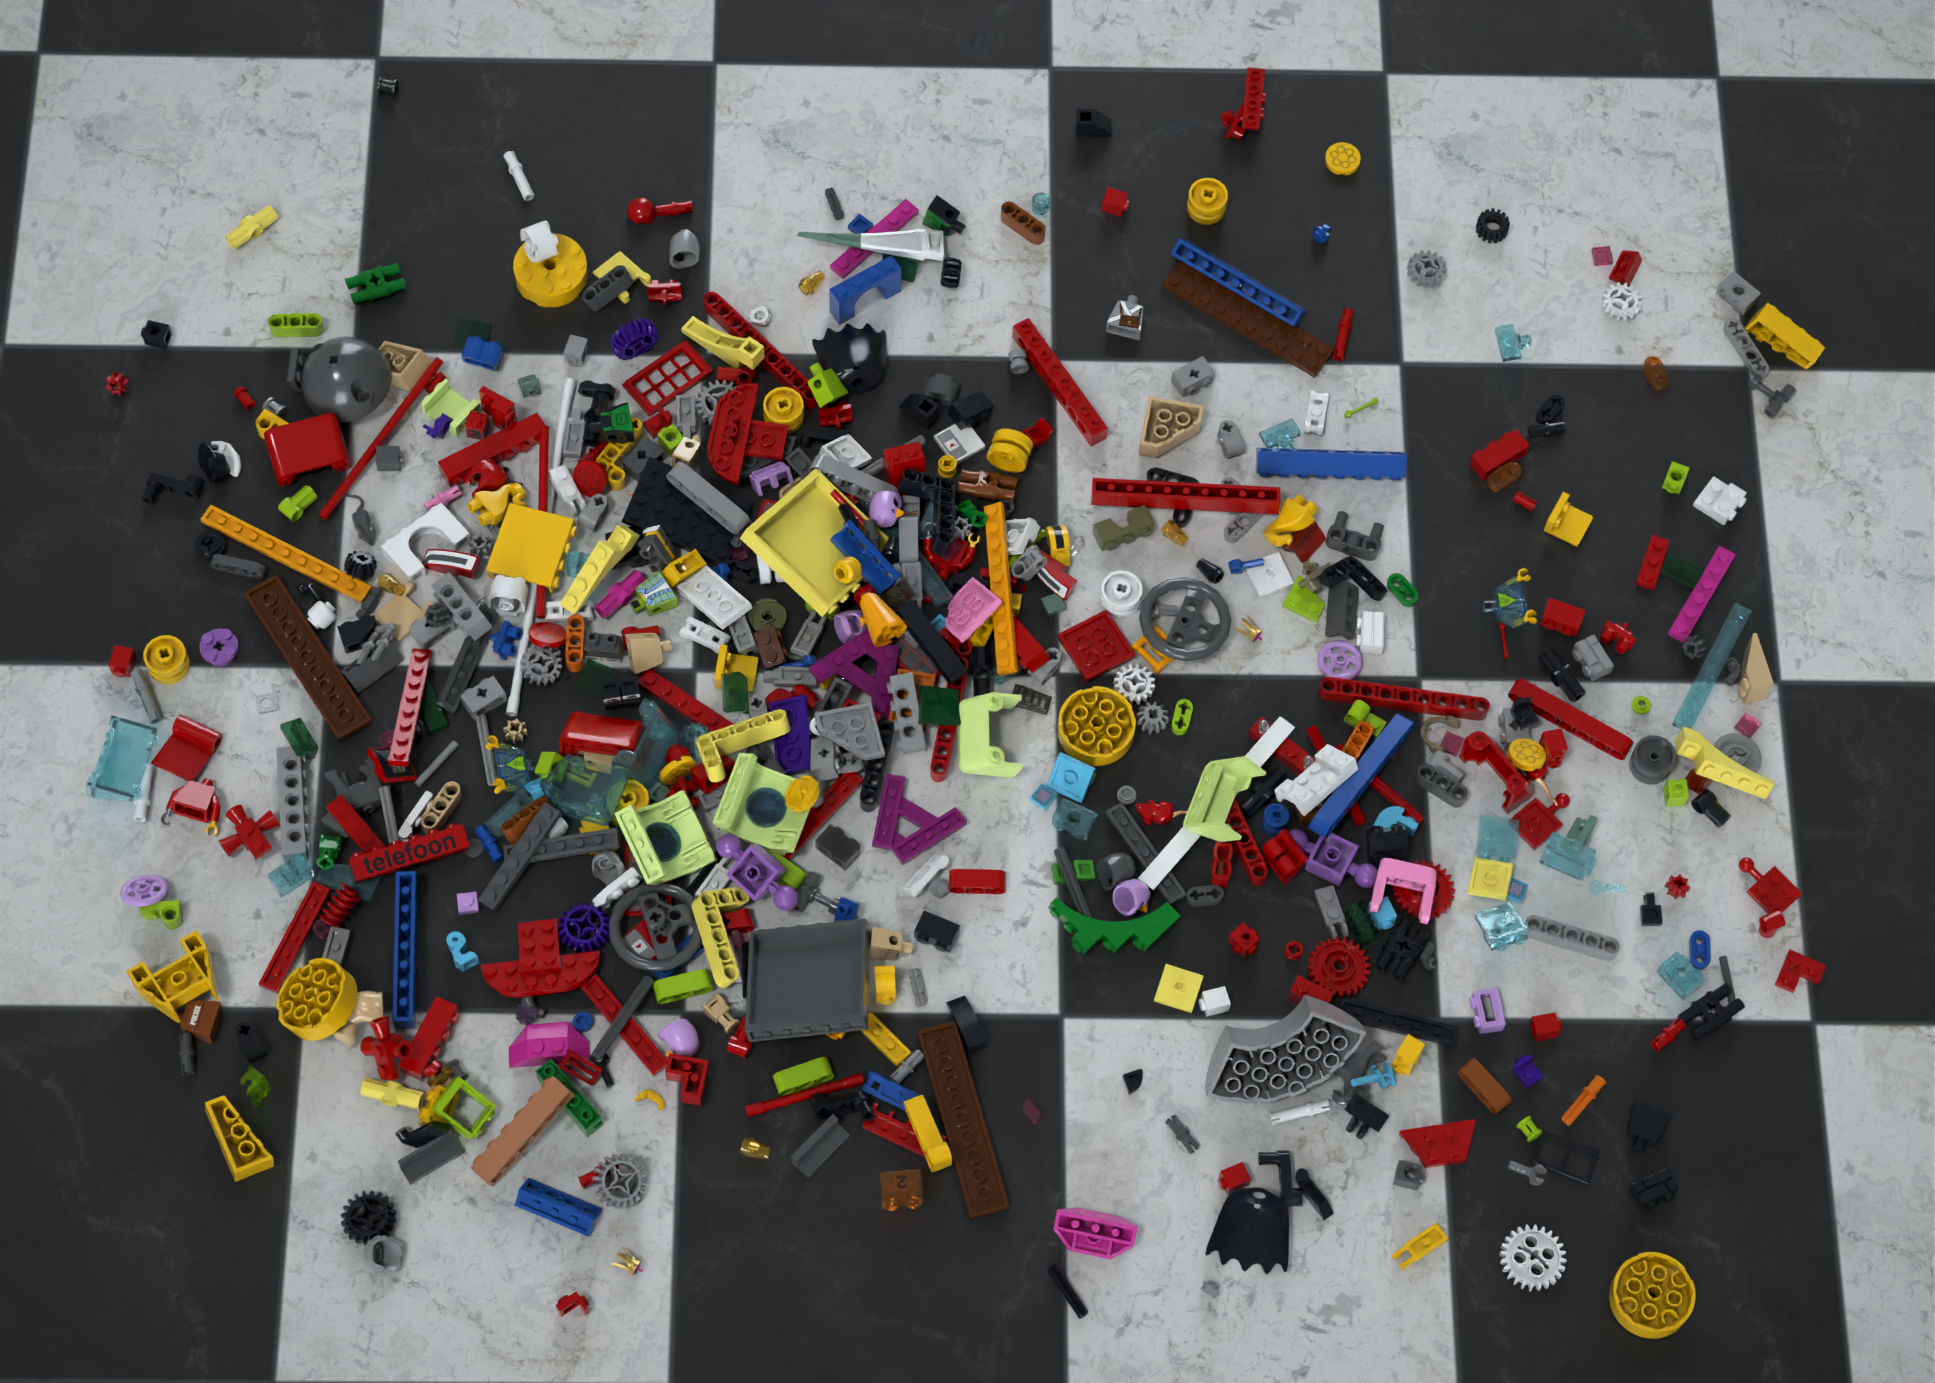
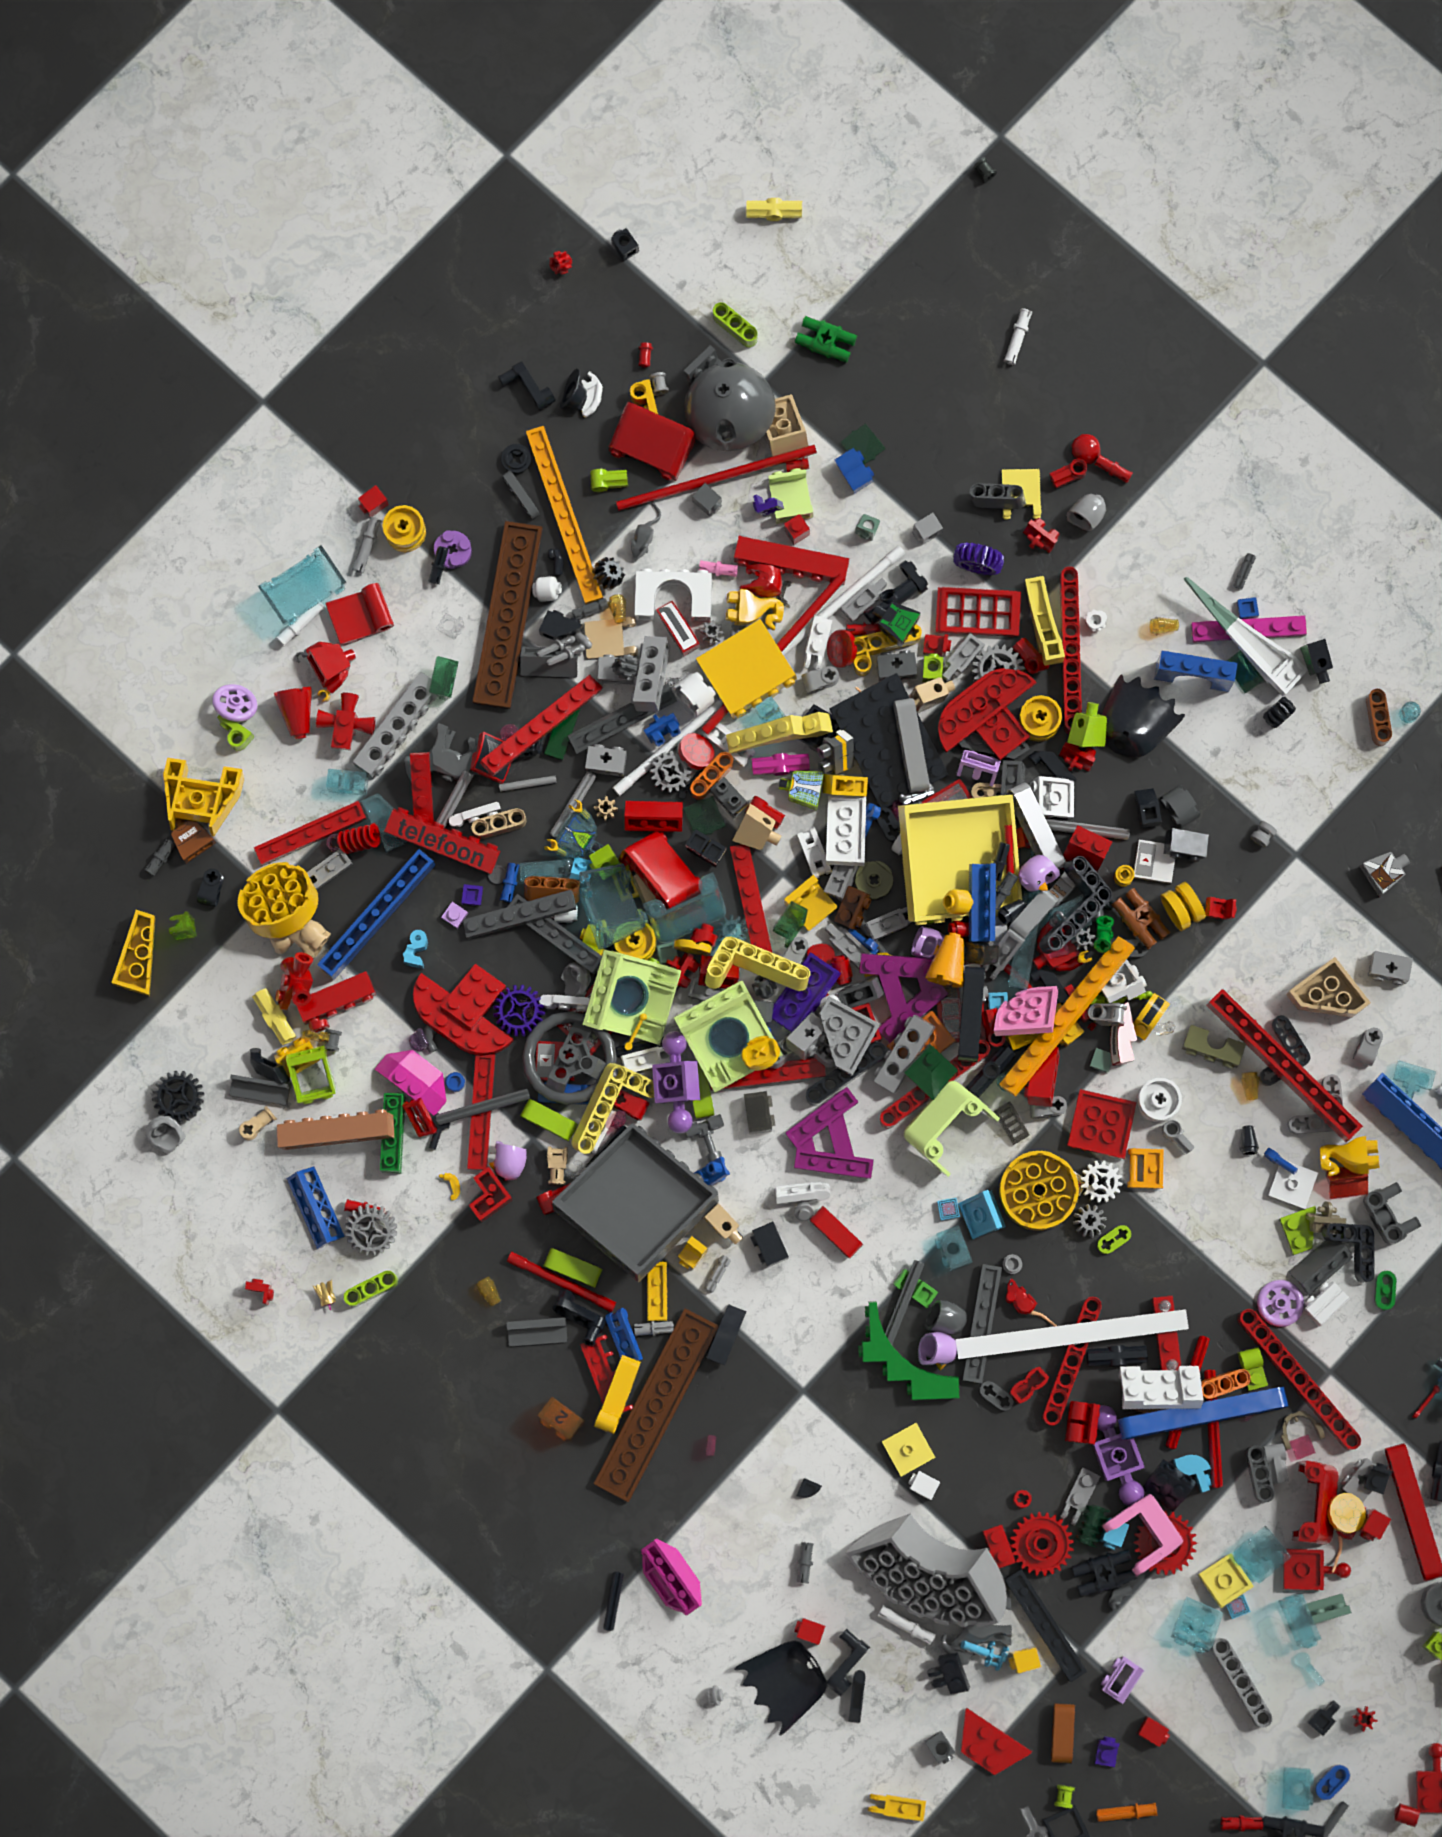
camera: 50 degrees right, 15 degrees up
(199, 855) = (296, 710): none -> red cone
(218, 664) = (438, 565): none -> black axle
(328, 849) = (391, 785): green connector -> none
(452, 1184) = (258, 1123): none -> tan connector
(468, 876) = (472, 895): none -> dark purple plate
(499, 407) = (822, 535): red plate -> none
(539, 242) = (972, 416): white brick -> none
(553, 280) = (969, 423): yellow brick -> none
(558, 705) = (653, 816): none -> red brick
(645, 236) = (1067, 474): none -> red piece
(660, 1217) = (360, 1288): none -> lime beam
(694, 881) = (628, 1045): none -> yellow hinge
(1060, 382) = (1279, 880): red brick -> none
(1187, 622) = (1200, 1199): dark grey piece -> none
(1215, 797) = (1068, 1332): yellowish green windscreen -> none
(1244, 940) = (995, 1453): red brick -> none
(1254, 632) = (1233, 1219): pearl gold piece -> none
(1275, 819) = (1104, 1387): blue wheel -> none

